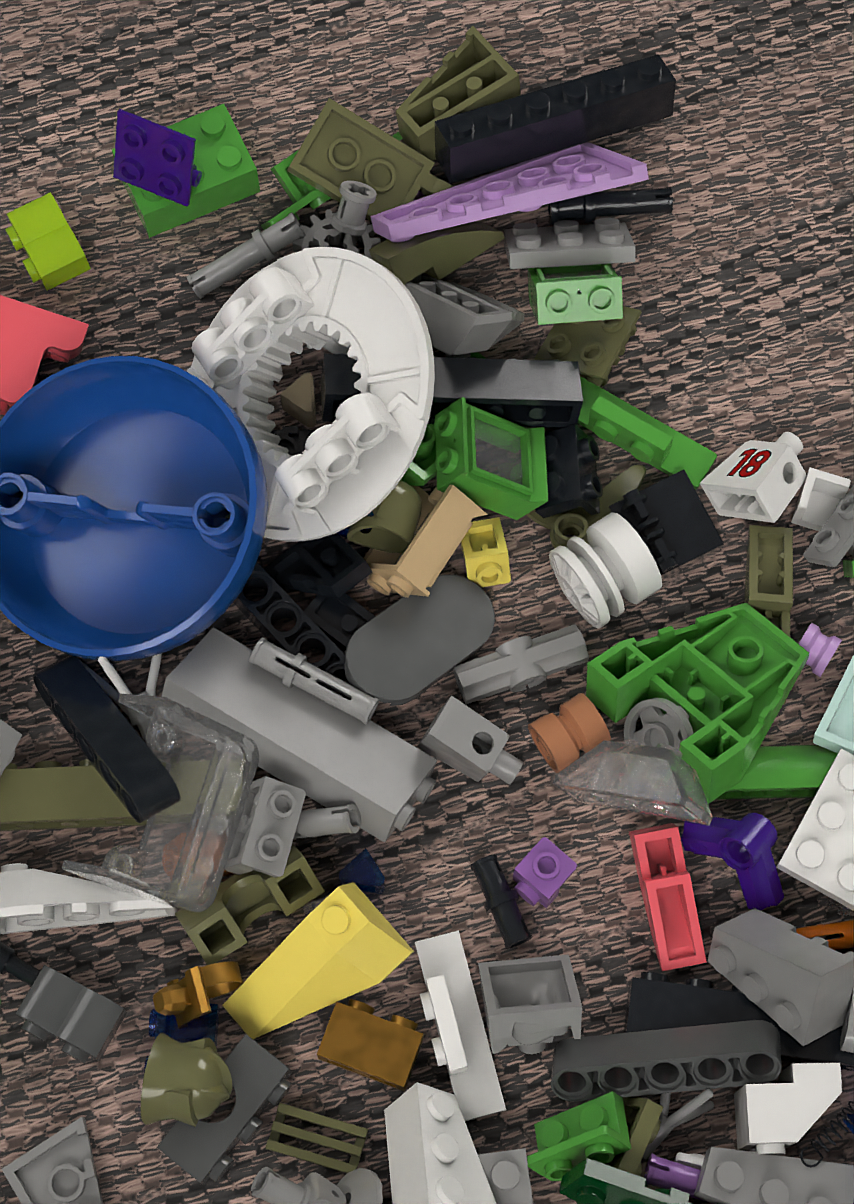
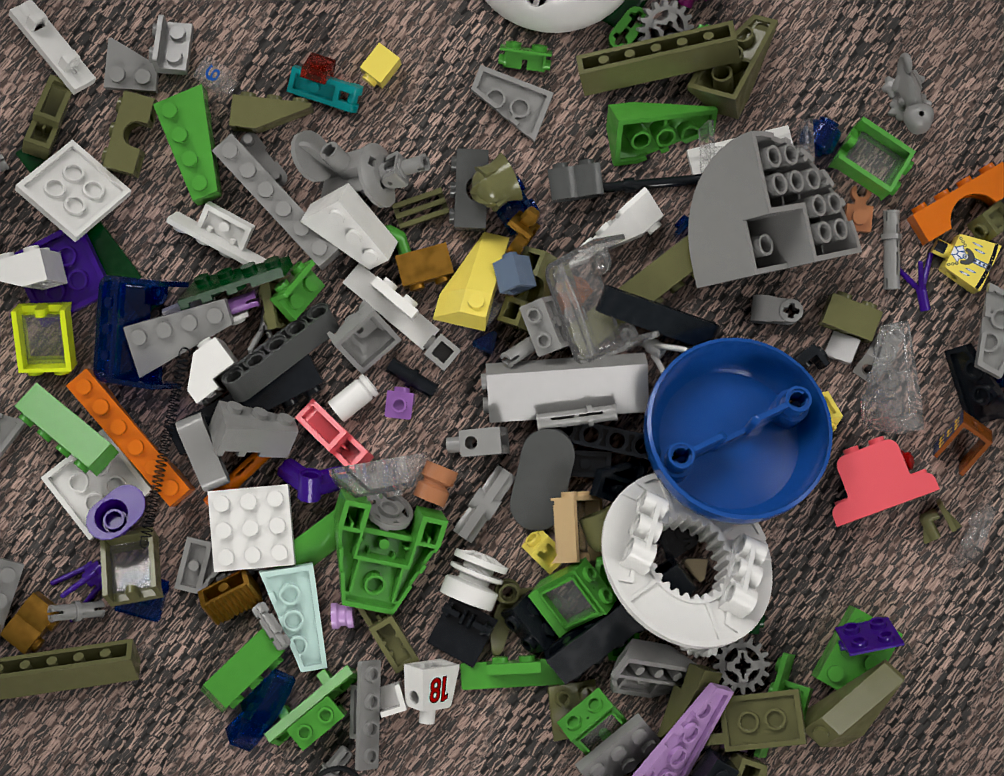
camera: 145 degrees right, 15 degrees up
(48, 242) = (898, 561): lime brick -> none
(239, 108) = (853, 707): none -> olive wedge
(246, 255) = (782, 636): light grey pin -> none
(253, 932) = (514, 273): none -> sand blue brick
(353, 207) = (746, 690): light grey bush -> none
(382, 1097) = (402, 245): none -> bright green arm
(434, 903) = (441, 351): none -> light grey brick
(603, 930) = (353, 397): none -> white piece

